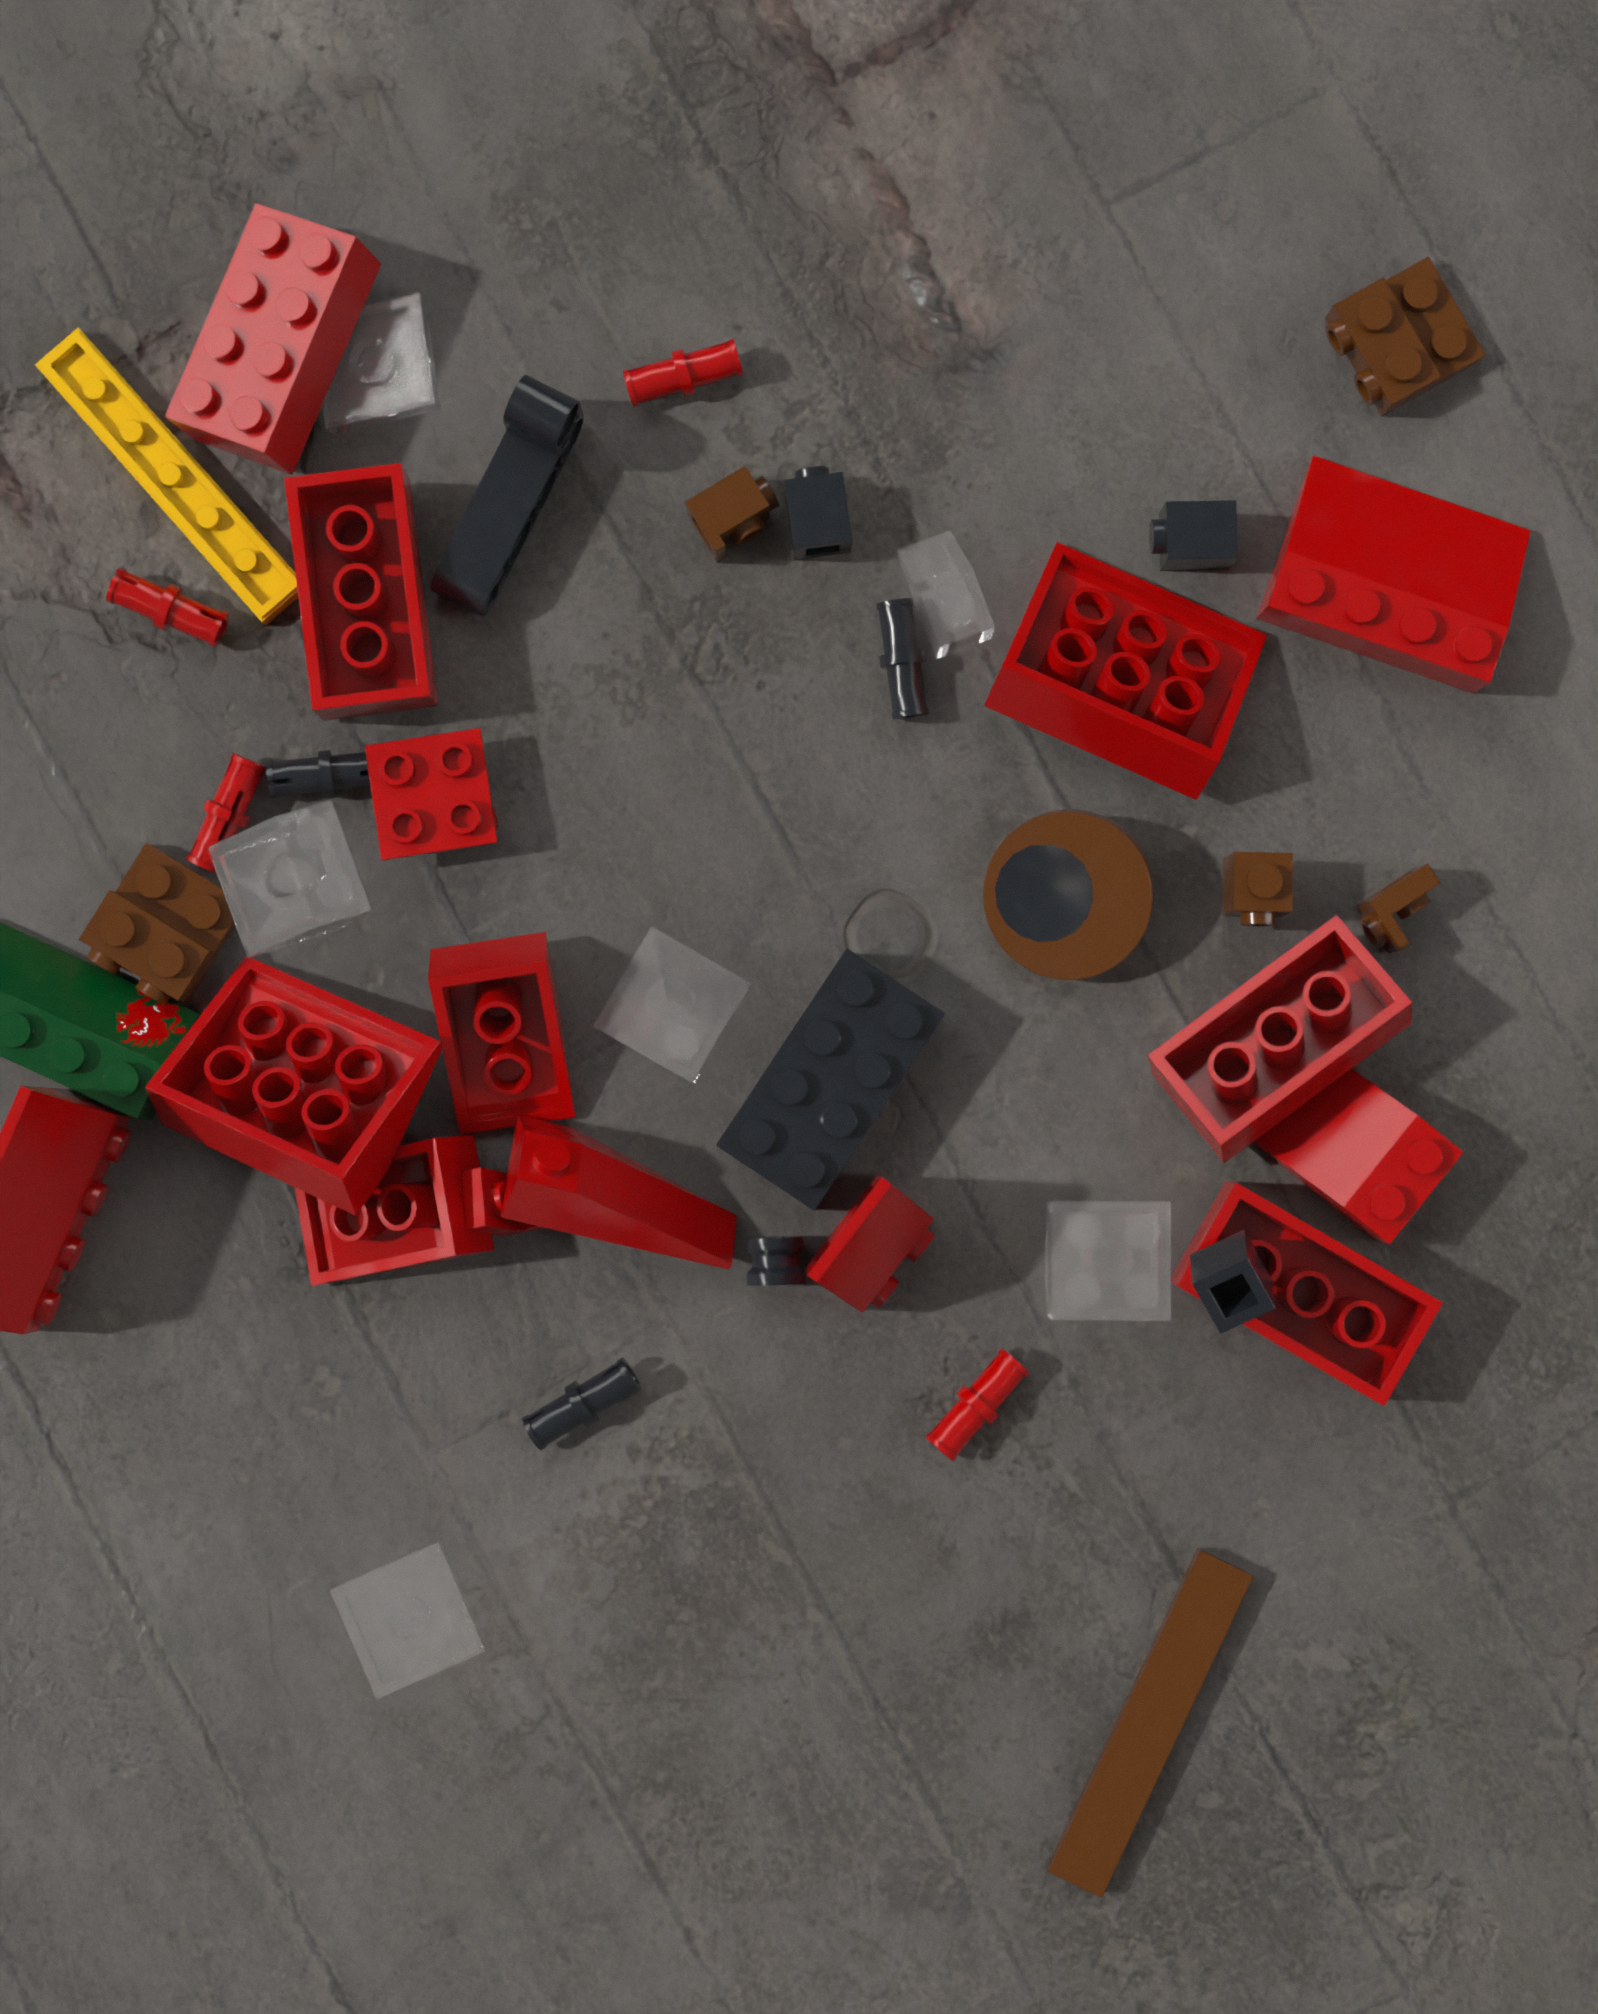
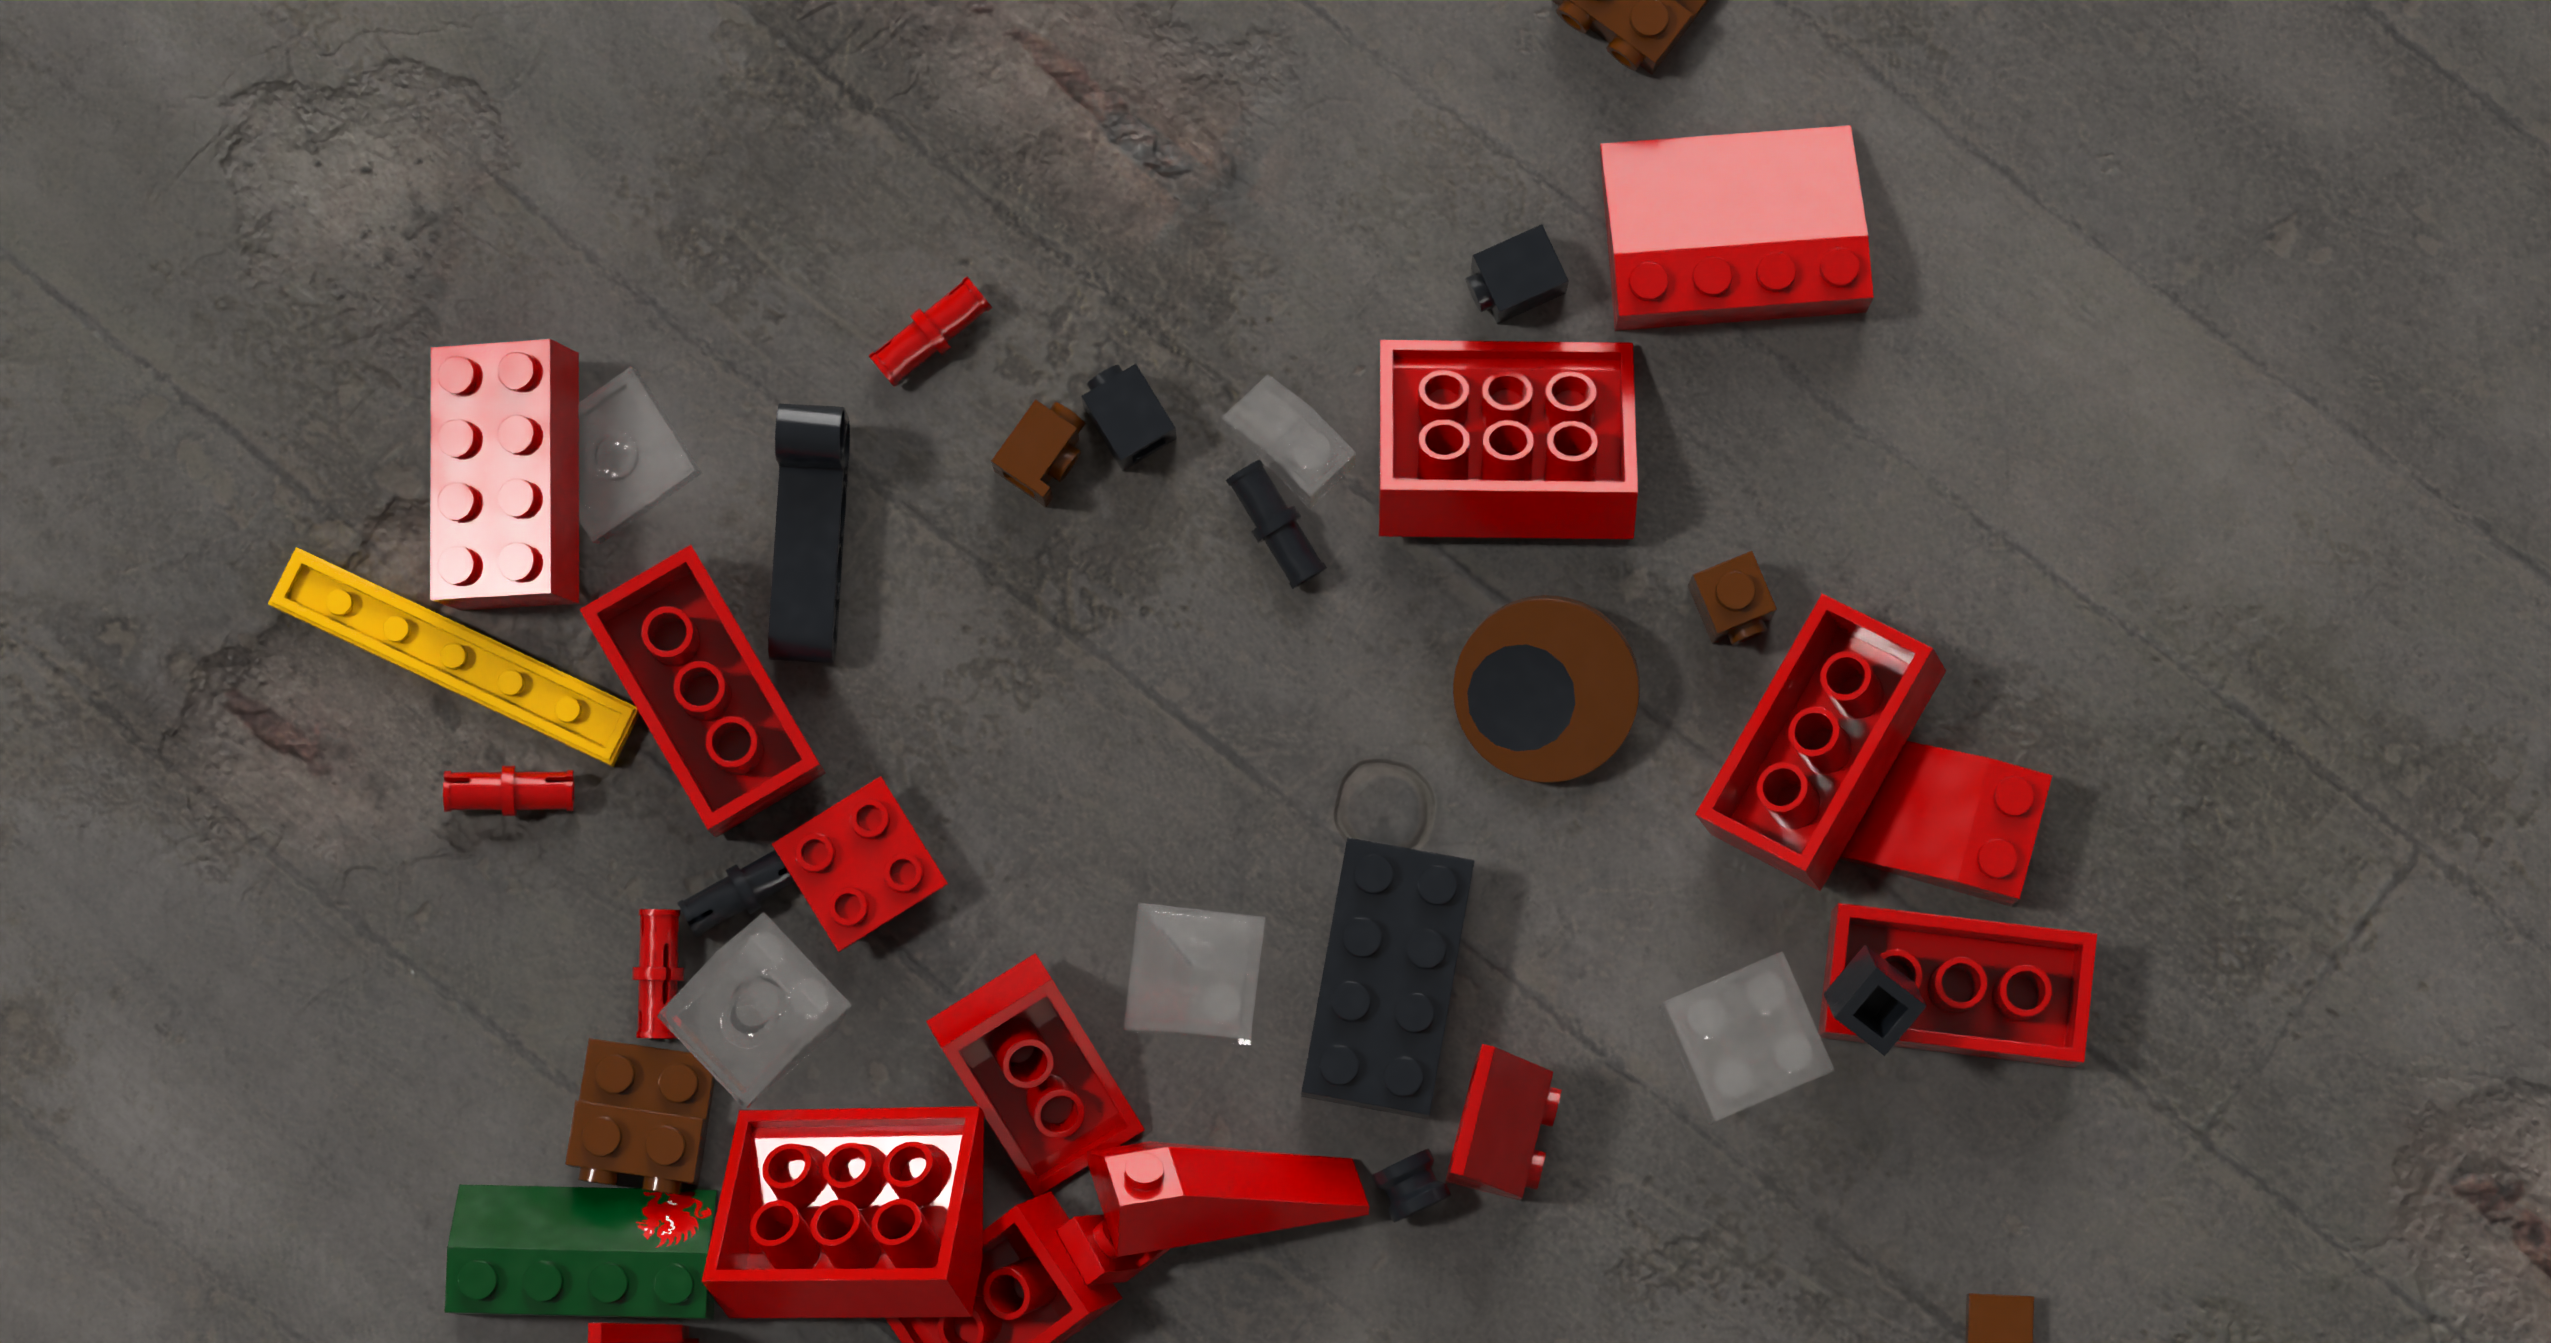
camera: 15 degrees left, 5 degrees down
(977, 1404) = (1679, 1244): red pin -> none
(1402, 897) = (1882, 547): reddish brown bracket -> none

